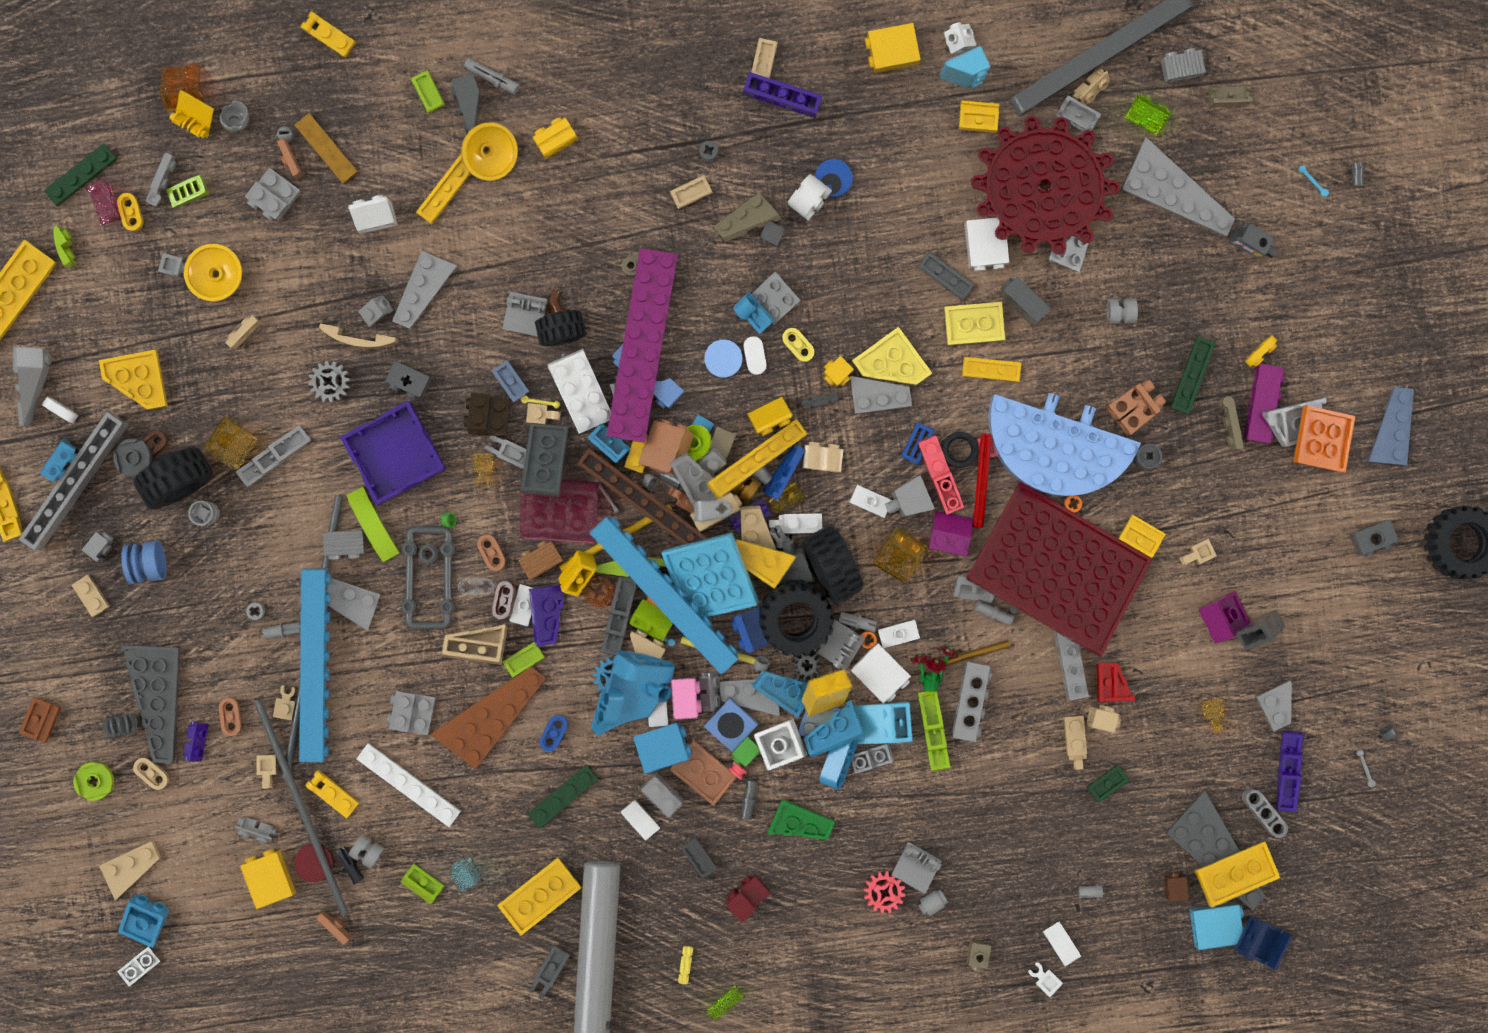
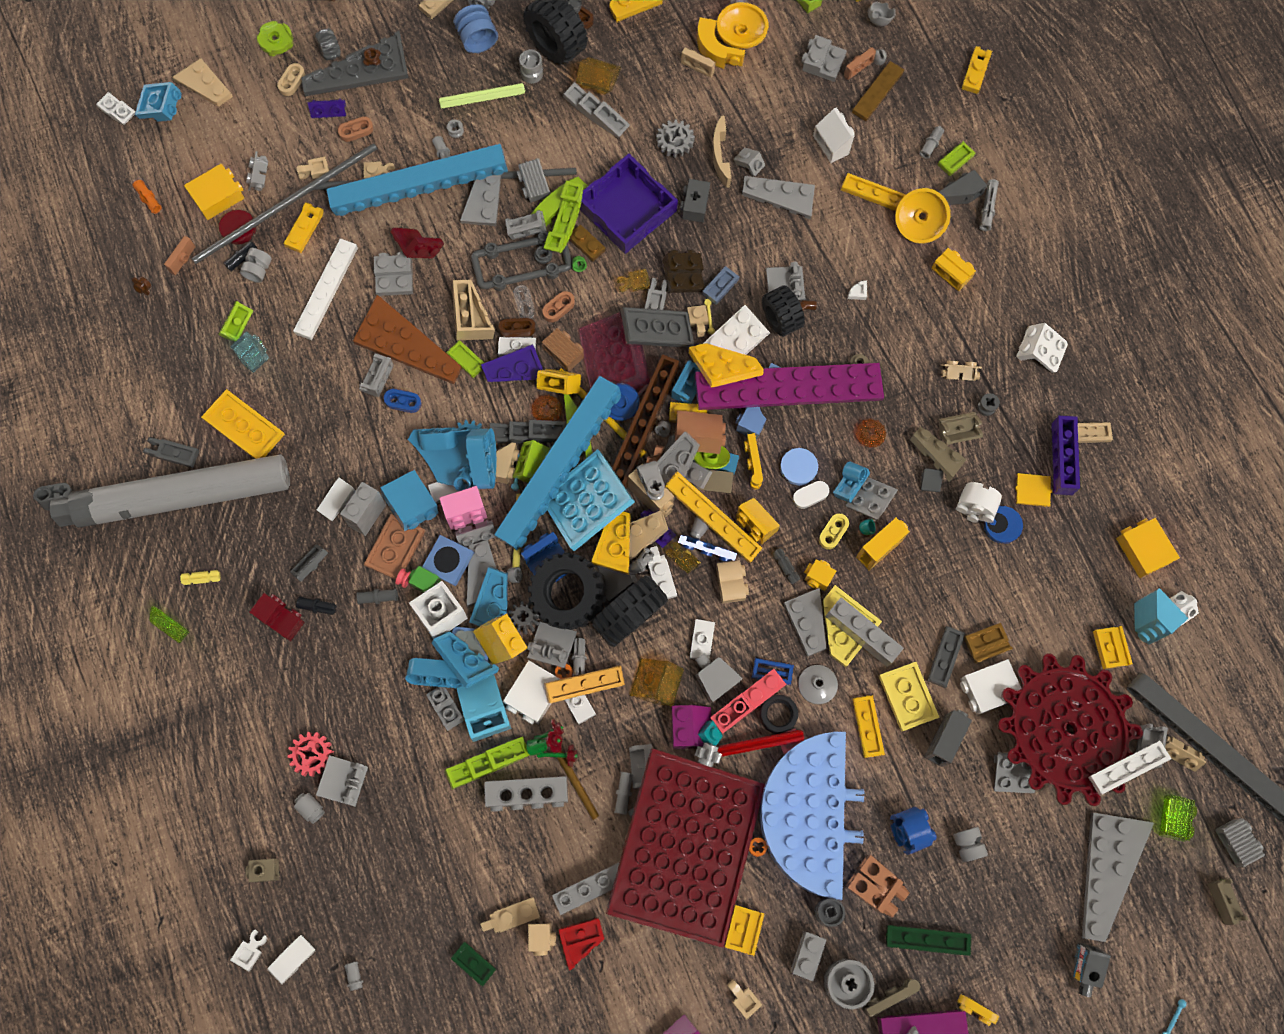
camera: 75 degrees right, 15 degrees down
(146, 676) = (368, 54): none -> reddish brown plate
(222, 573) = (482, 95): none -> yellowish green axle
(230, 313) = (712, 49): none -> yellow arch
(254, 950) = (147, 196): none -> orange pin
(358, 972) = (141, 285): none -> reddish brown plate
(385, 684) = (415, 245): none -> dark red bracket
(391, 564) = (525, 225): none -> light grey hinge
(398, 521) = (566, 217): none -> lime slope
(402, 111) = (932, 142): none -> light grey axle
(425, 505) = (587, 243): none -> pearl gold plate
(519, 753) = (377, 375): none -> light grey hinge
(552, 241) = (858, 291): none -> white tile
(562, 796) = (344, 424): dark green plate -> none
(607, 406) = (723, 365): none -> yellow plate
(614, 508) = (627, 404): none -> blue tile
(662, 76) = (1043, 345): none -> white bracket
(666, 159) = (969, 371): none -> tan hinge
(691, 192) = (945, 398): tan plate -> none
(707, 286) = (875, 440): none -> clear orange gear
(708, 402) = (753, 462): none -> yellow plate
(727, 188) = (960, 428): none -> dark tan hinge
(743, 859) = (316, 605): none -> black axle
(746, 489) = (681, 516): pearl gold wheel -> none
(799, 821) = (366, 649): green wing -> none
(803, 310) = (867, 527): none -> teal hinge
(805, 136) = (1033, 490): none -> yellow piece
(825, 302) = (883, 543): none -> yellow brick
(886, 623) = (584, 684): none -> tile
(907, 348) = (864, 632): none -> light grey brick
(933, 411) = (809, 689): none -> light grey dish
(944, 232) = (988, 643): none -> pearl gold plate
(962, 519) = (710, 733): none -> teal plate
(982, 526) = (708, 754): none -> light grey gear
(1095, 145) = (1129, 768): none -> white plate
(1096, 360) = (912, 830): none -> blue brick
(1178, 486) = (808, 956): none -> light grey brick
(1199, 459) = (861, 983): none -> light grey wheel

